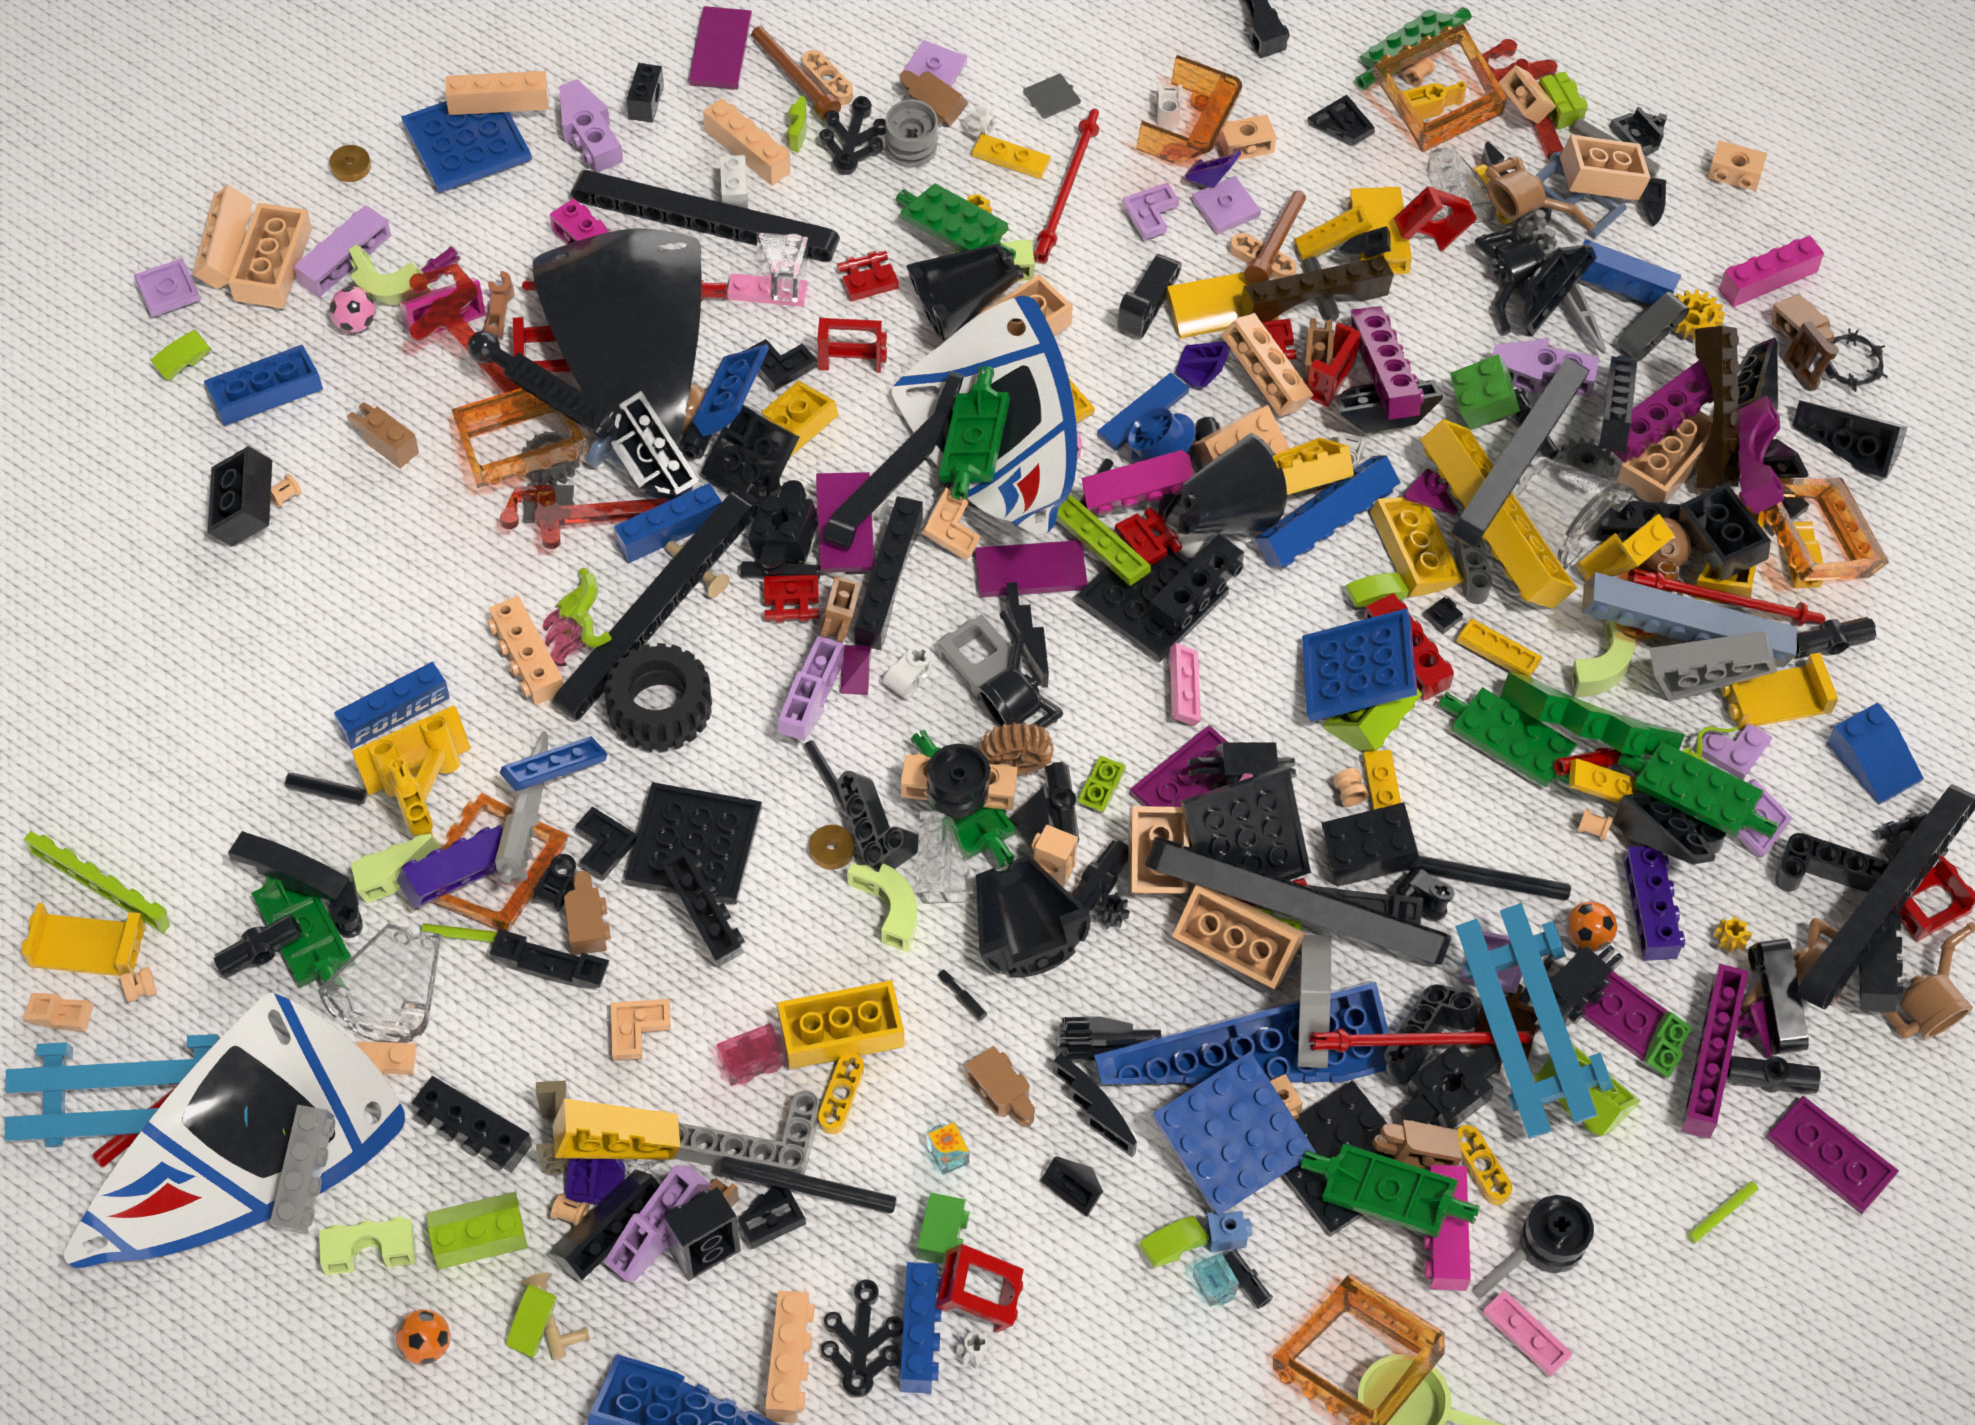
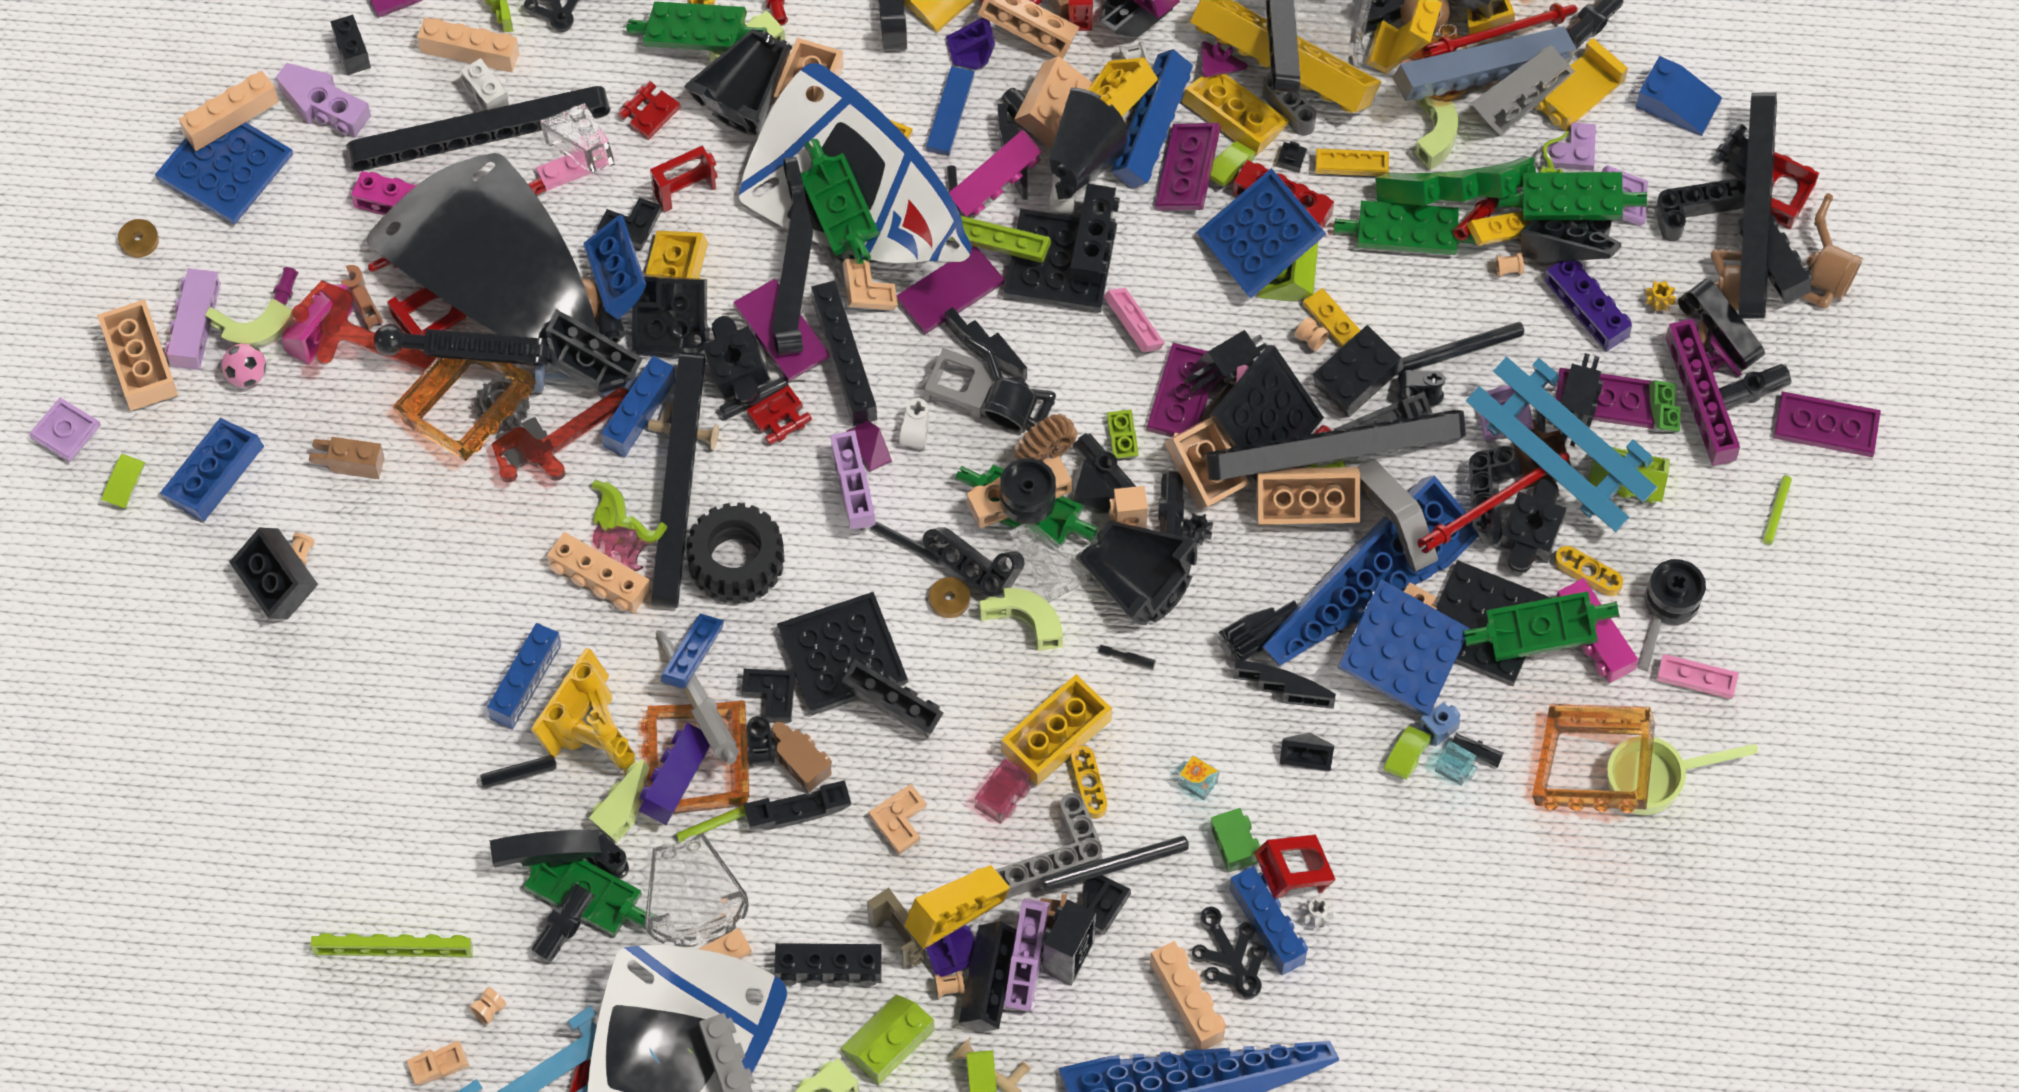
camera: 30 degrees left, 5 degrees up
(83, 943) = (418, 999): yellow panel -> none
(222, 236) = (83, 360): light nougat brick -> none
(839, 608) = (829, 403): medium nougat hinge -> none
(1001, 1086) = (1206, 709): medium nougat hinge -> none
(1139, 536) = (1026, 219): red plate -> none
(1159, 434) = (986, 127): blue piece -> none
(1333, 572) = (1187, 166): none -> magenta tile
(1419, 1144) = (1540, 580): medium nougat hinge -> none
(1591, 926) = (1557, 346): orange piece -> none

